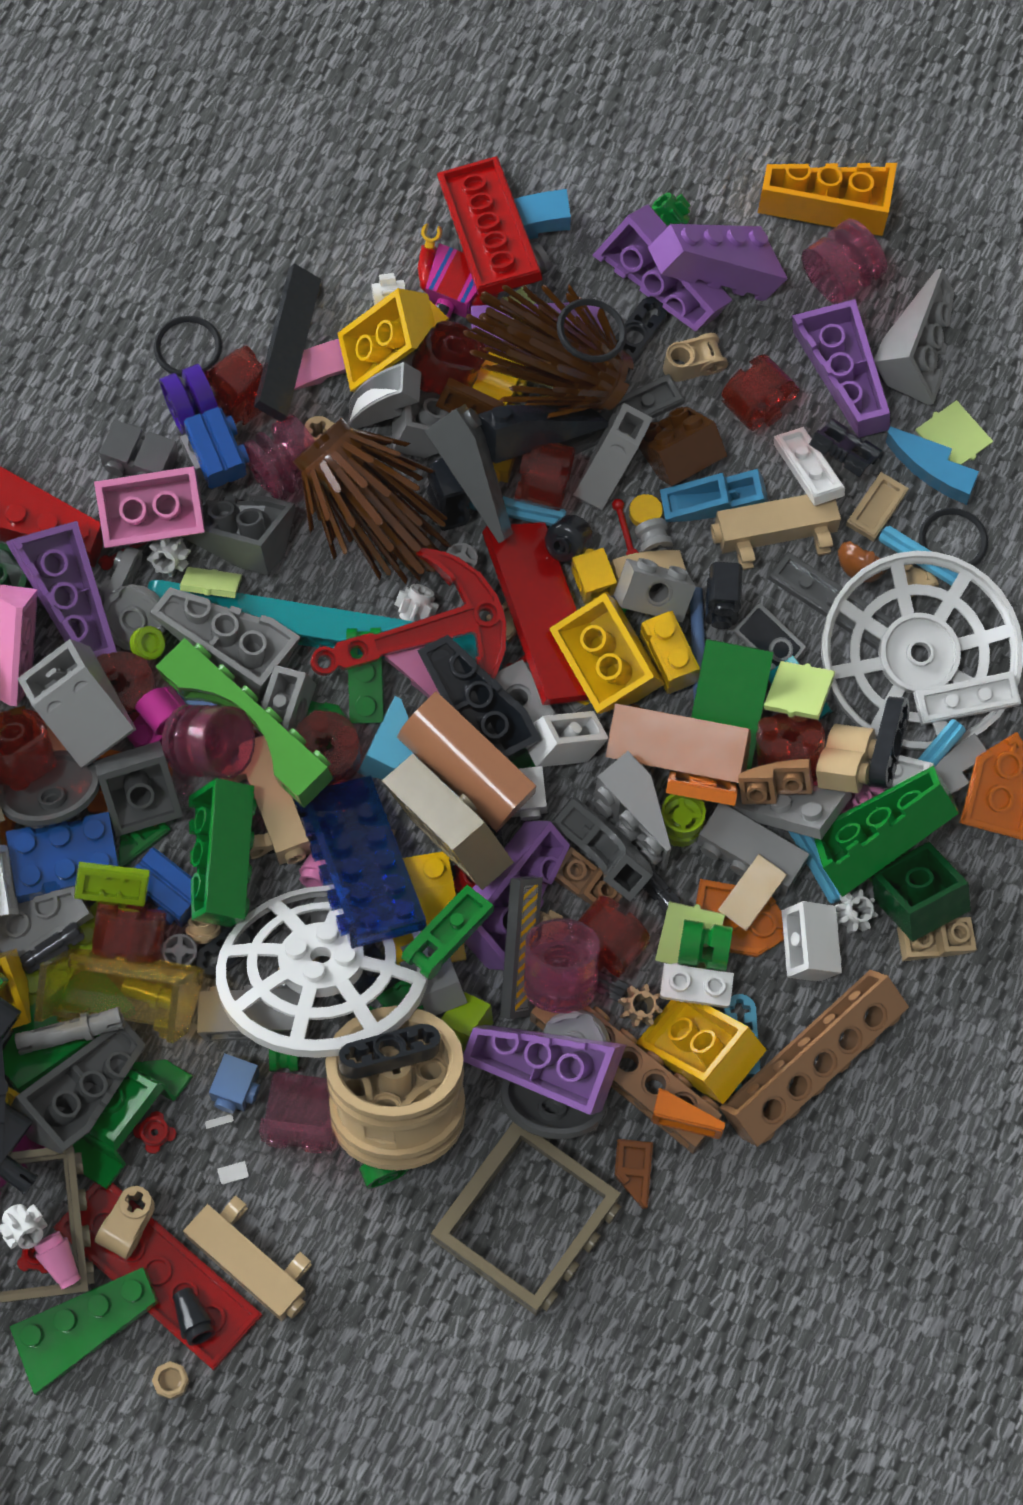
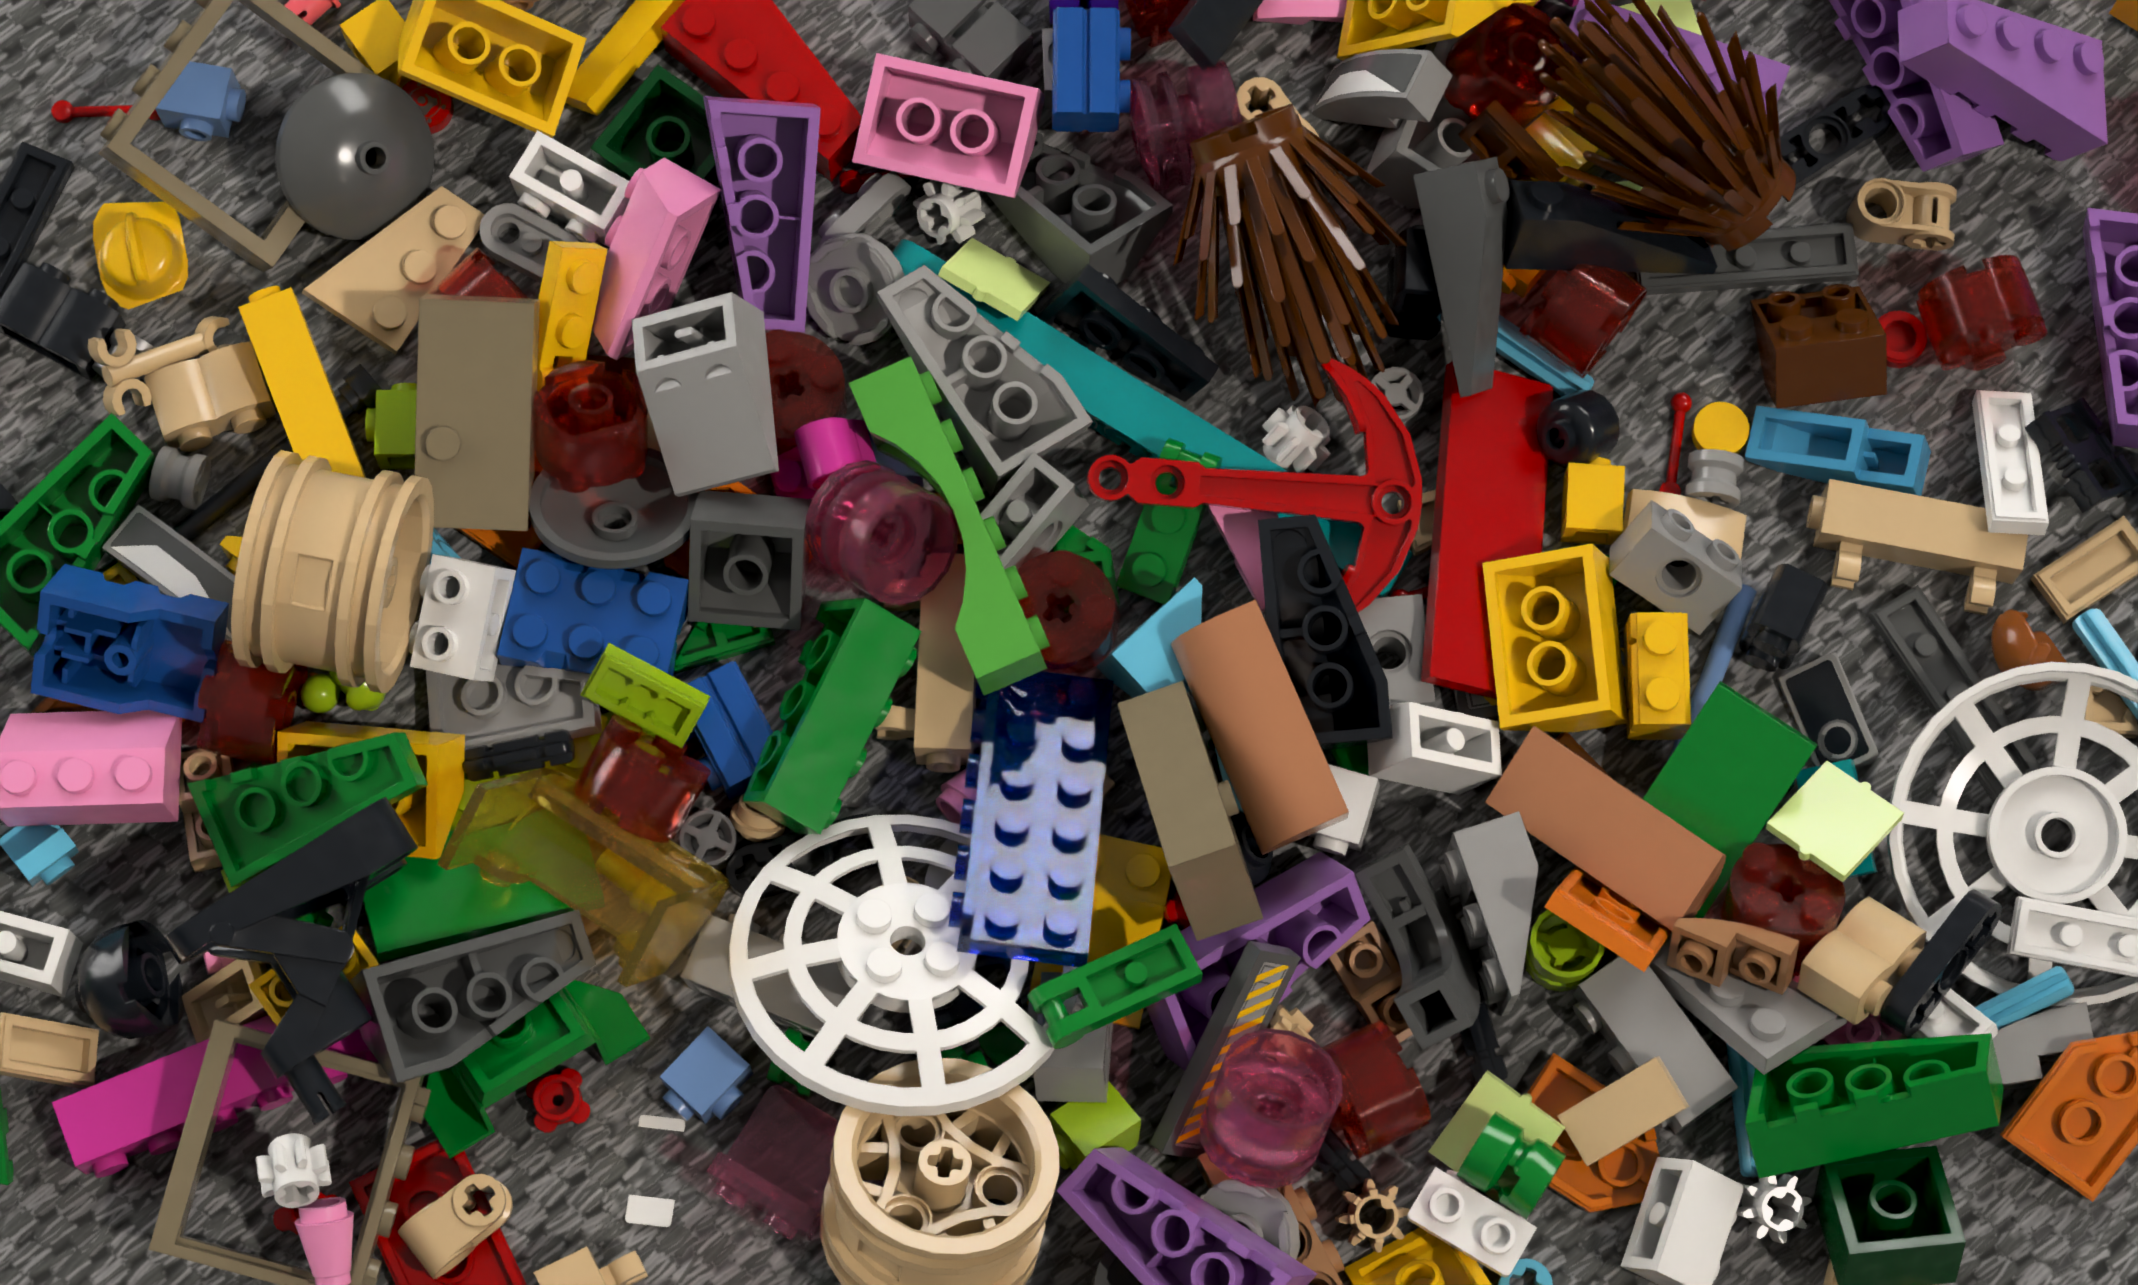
camera: 25 degrees right, 5 degrees up
(76, 1029) = (509, 900): light grey pin -> none
(147, 642) = (856, 338): lime tile -> none
(294, 580) = (1116, 322): none -> black wing
(381, 1063) = (964, 1122): black beam -> none
(585, 357) = (1775, 87): black tyre -> none
(612, 455) = (1702, 322): light grey slope -> none
(725, 423) = (1904, 338): none -> red tile

